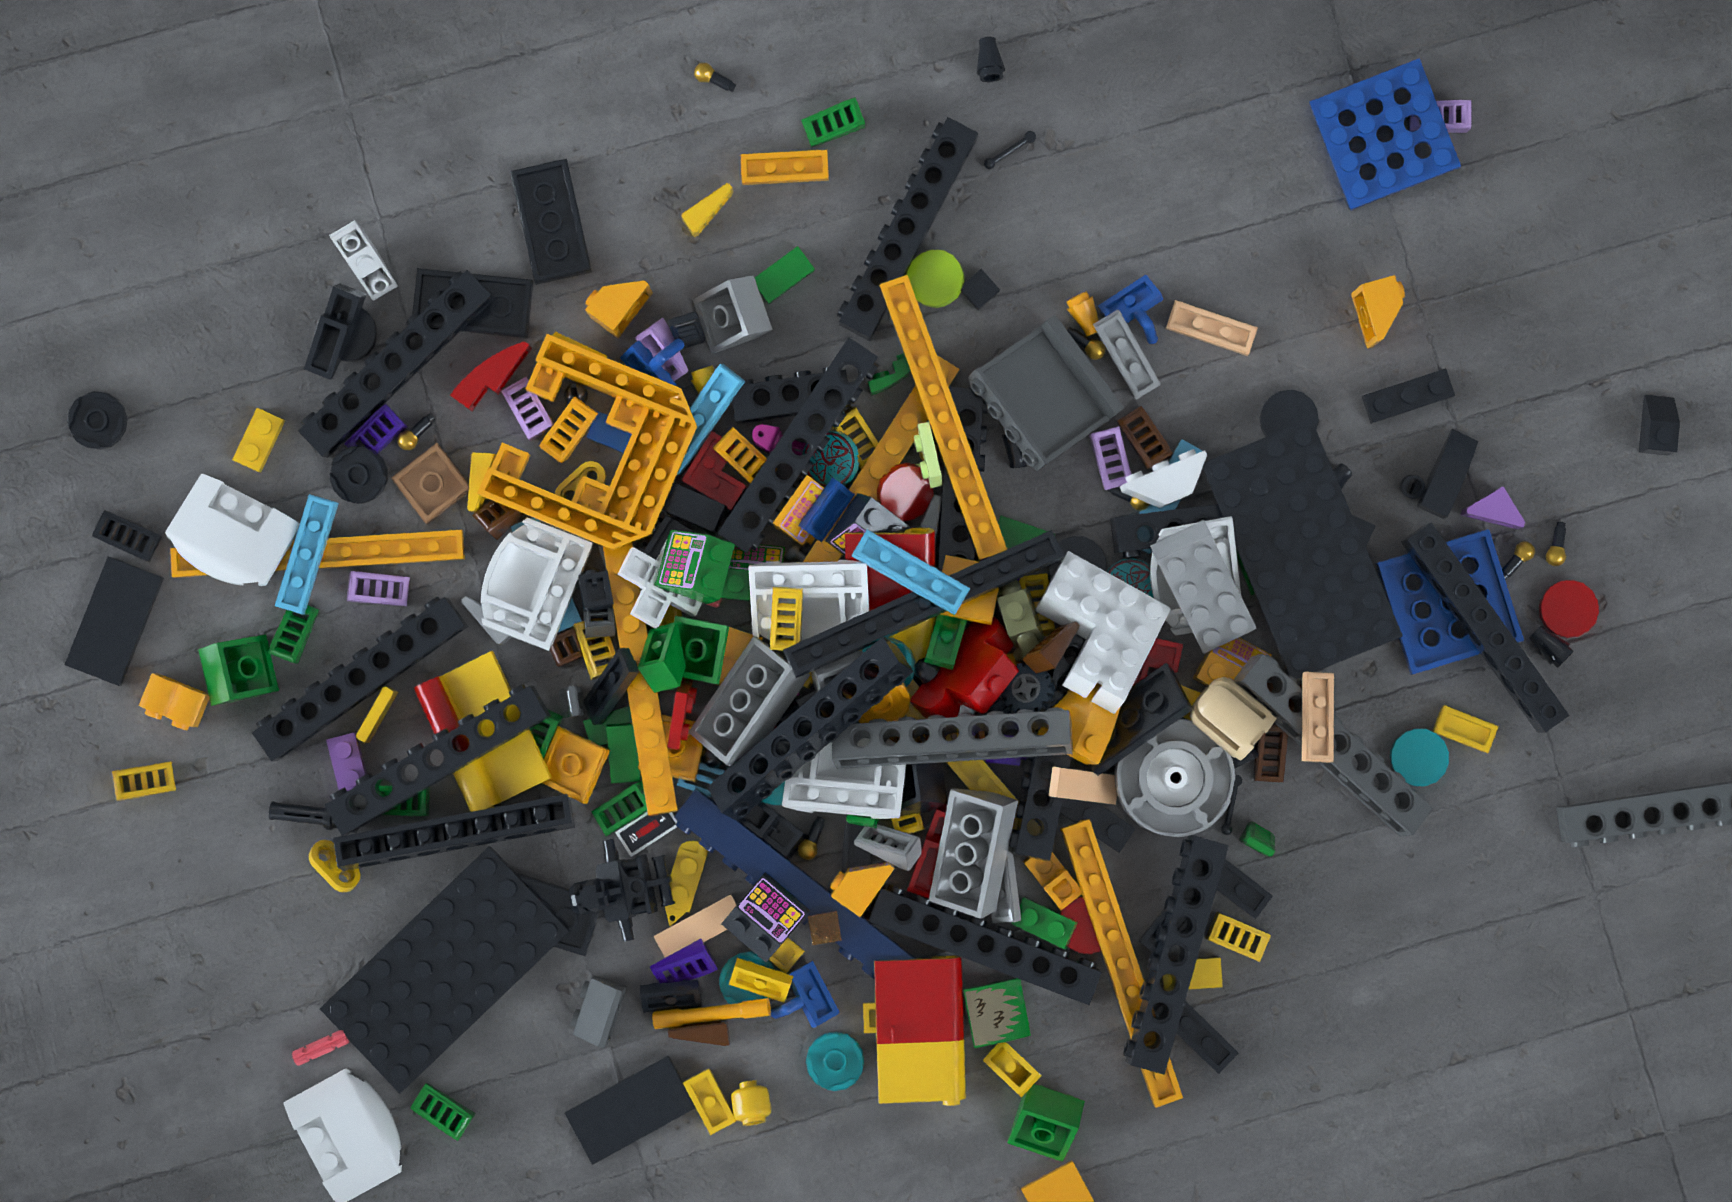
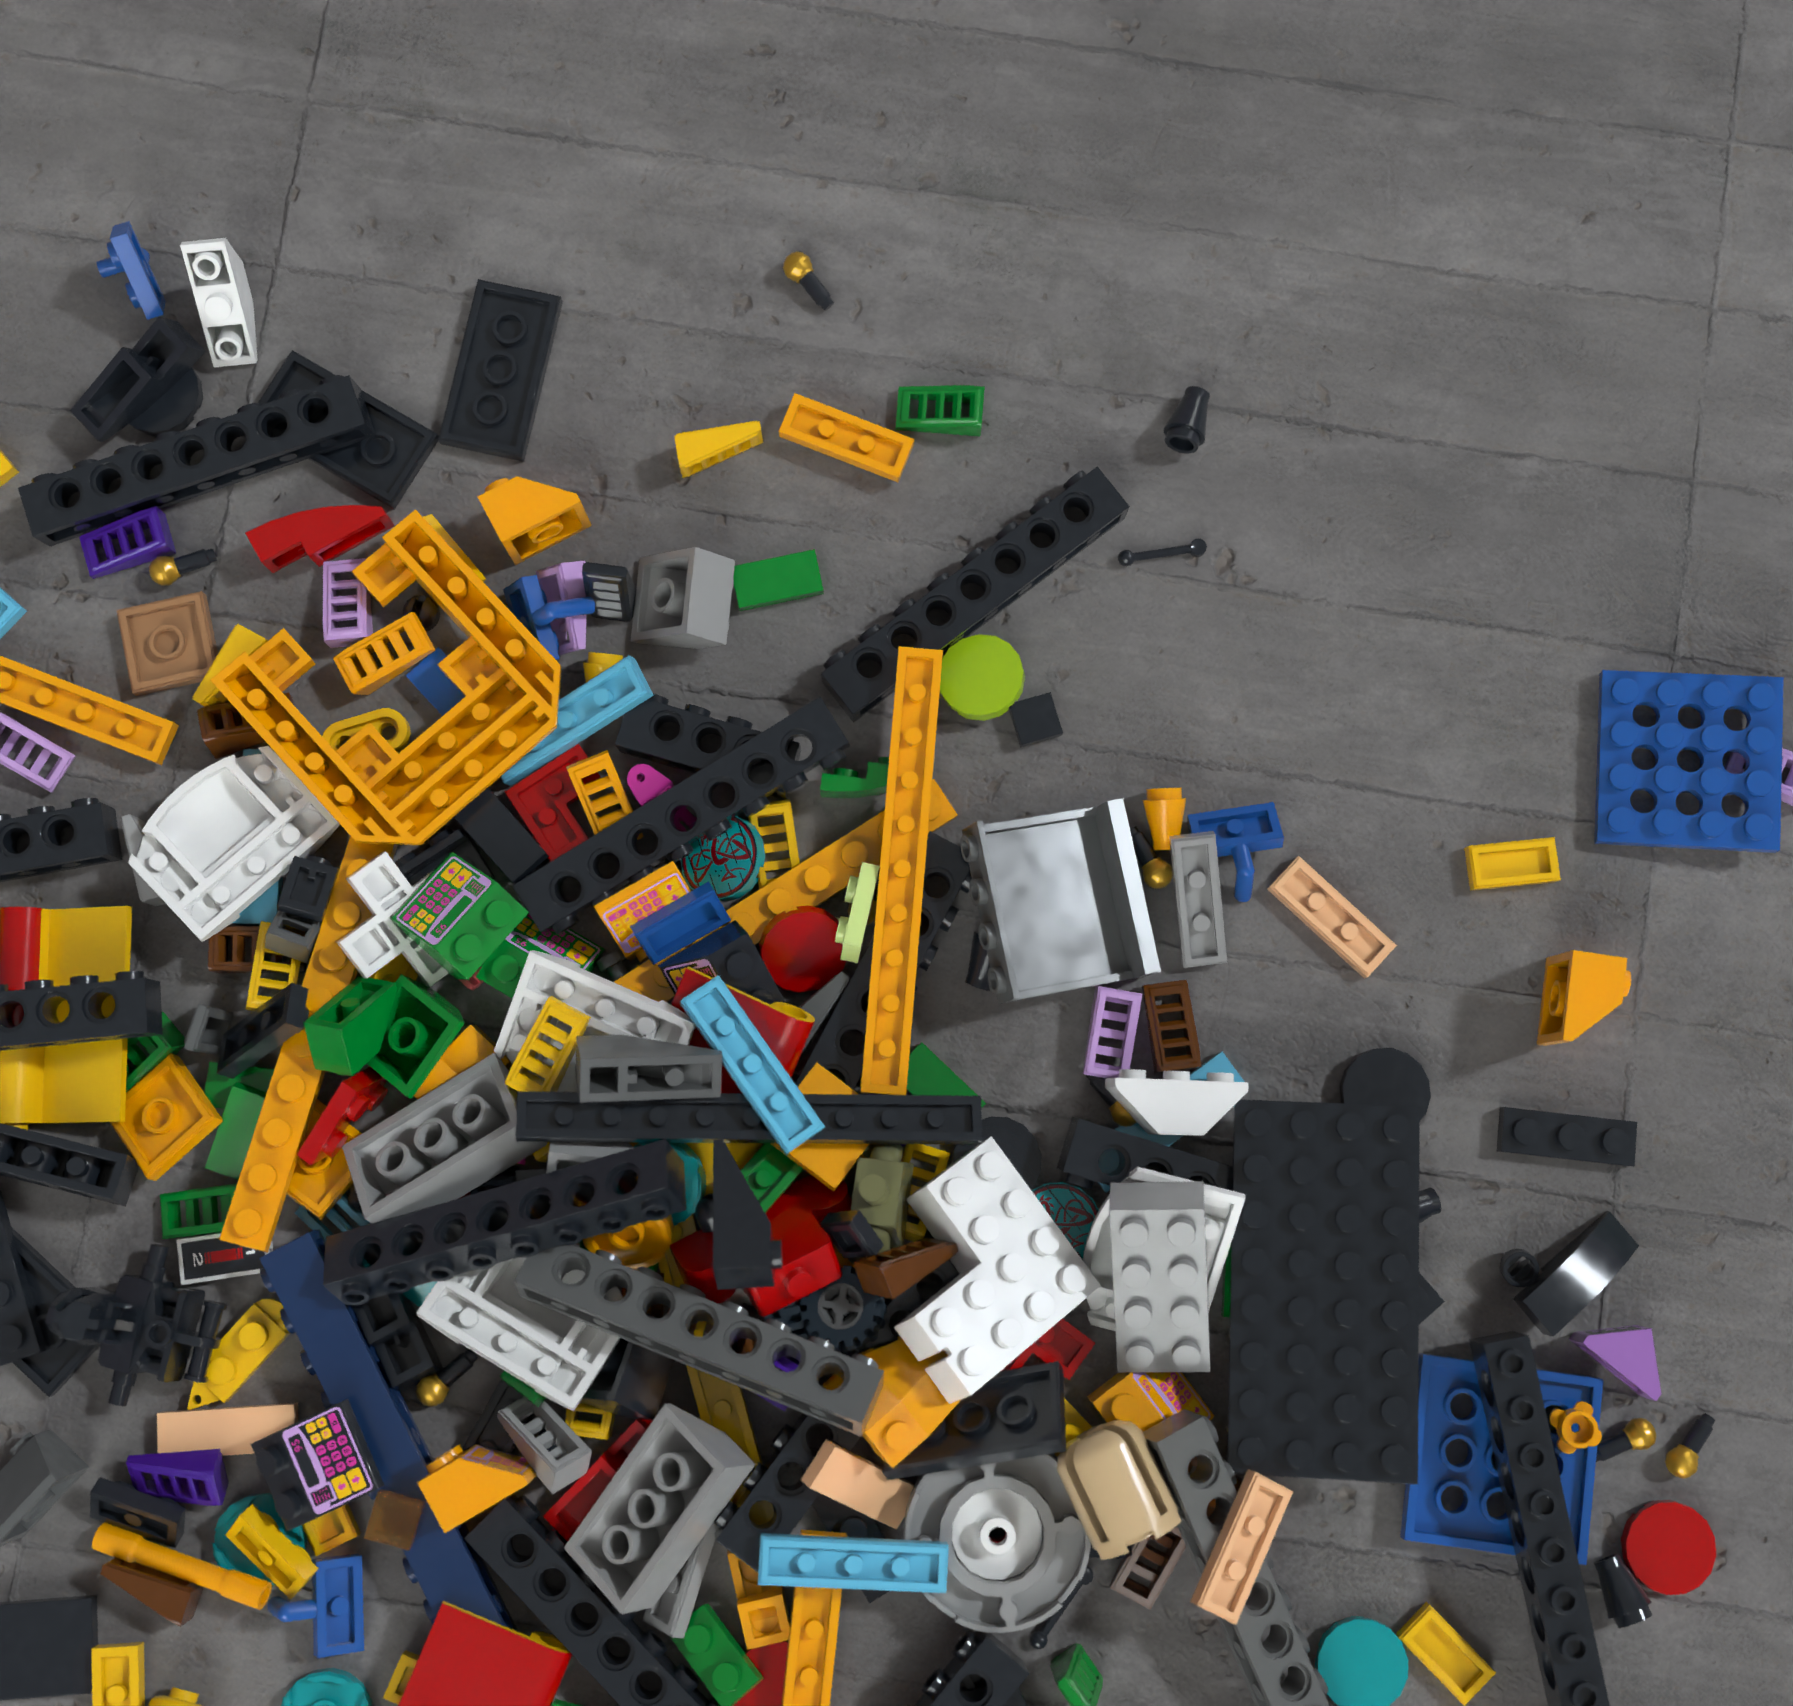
camera: 20 degrees right, 5 degrees down
(292, 256) = (129, 257): none -> blue plate
(358, 474) = (75, 586): black tile -> none
(849, 603) = (644, 1069): none -> dark grey slope
(952, 668) = (741, 1230): none -> black slope
(1014, 643) = (851, 1234): none -> black tile
(1100, 829) = (853, 1563): none -> medium azure tile
(1306, 245) = (1512, 863): none -> yellow tile
(1492, 564) = (1588, 1430): none -> light orange plate

